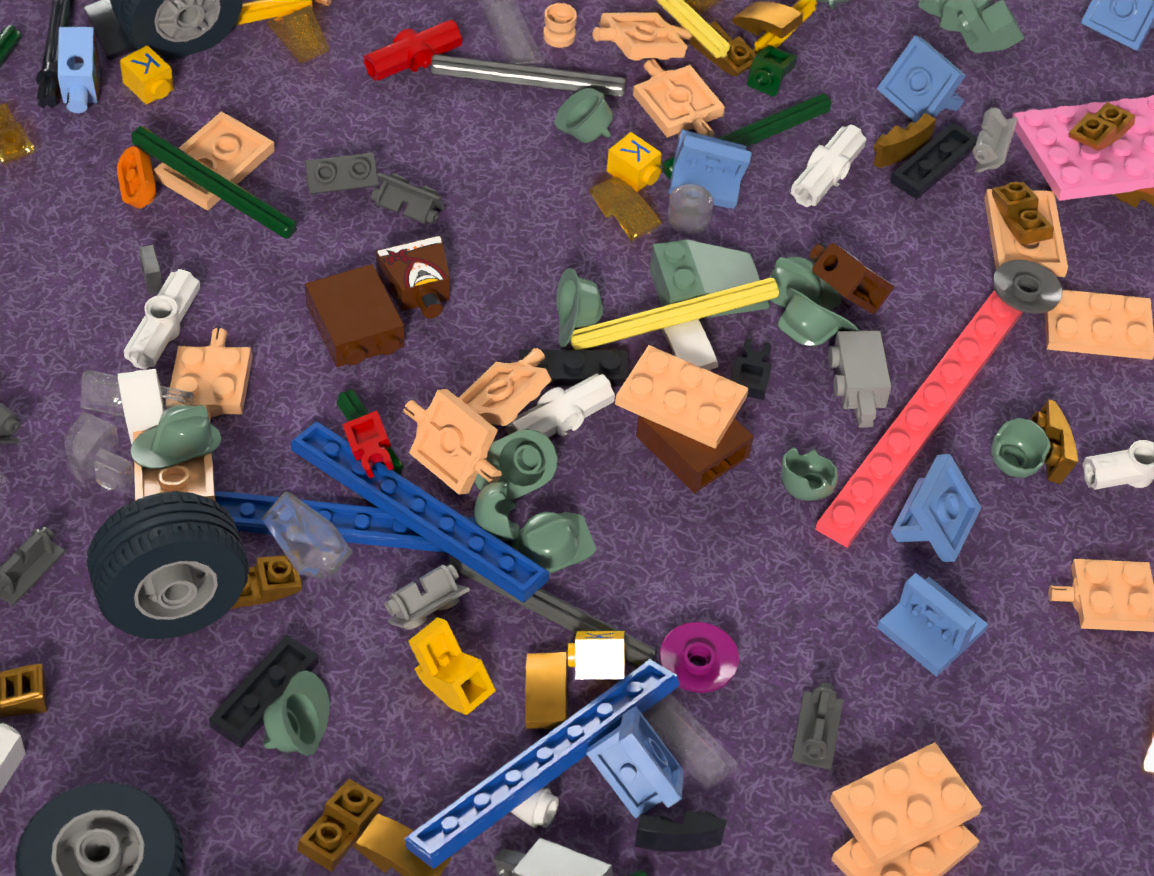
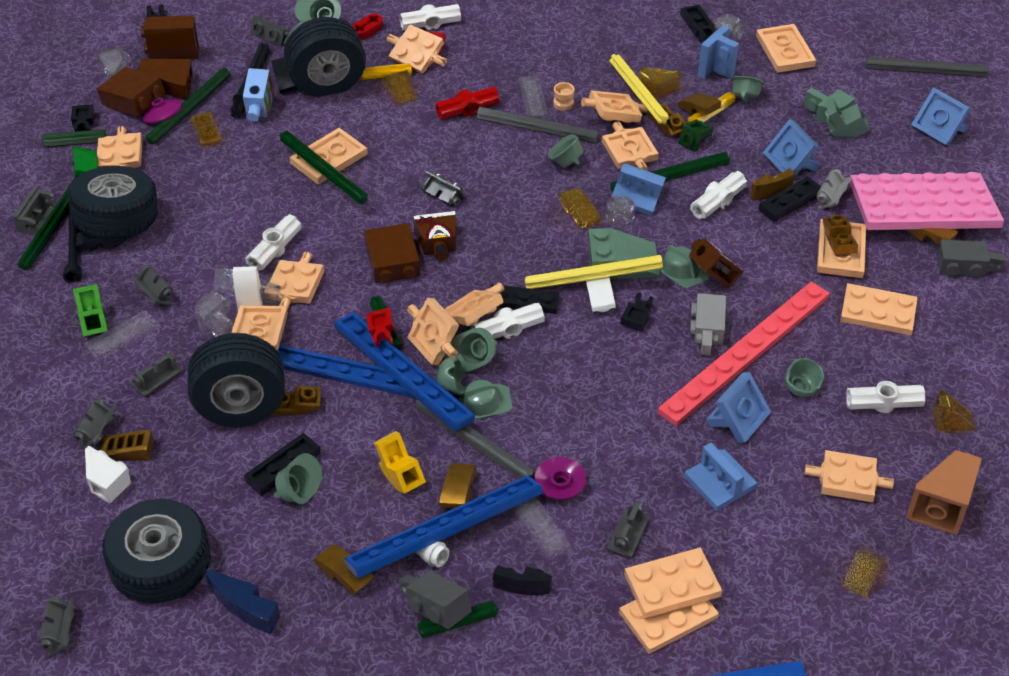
camera: 15 degrees right, 5 degrees down
(136, 177) = (278, 161): orange plate -> none
(146, 75) = (299, 102): yellow brick -> none
(150, 269) = (273, 212): flat silver tile -> none
(179, 436) = (264, 309): sand green piece -> none
(306, 537) = (329, 377): clear slope -> none
(340, 825) = (313, 543): pearl gold slope -> none
(341, 173) = (403, 169): dark grey hinge -> none
(439, 594) = (404, 419): light grey hinge -> none
(577, 304) = (535, 260): sand green piece -> none
(598, 654) = (494, 468): brick -> none
(634, 162) = (591, 180): yellow brick -> none
(638, 765) = (503, 534): medium blue bracket -> none
(681, 396) = (584, 320): light nougat plate -> none
(692, 460) = (590, 346): reddish brown brick -> none
(799, 469) = (653, 374): sand green hair -> none
(809, 322) = (681, 286): sand green piece -> none
(1027, 286) = (832, 280): dark grey dish -> none
(1063, 452) = (832, 376): pearl gold slope -> none
(1103, 127) = (906, 188): pearl gold slope -> none

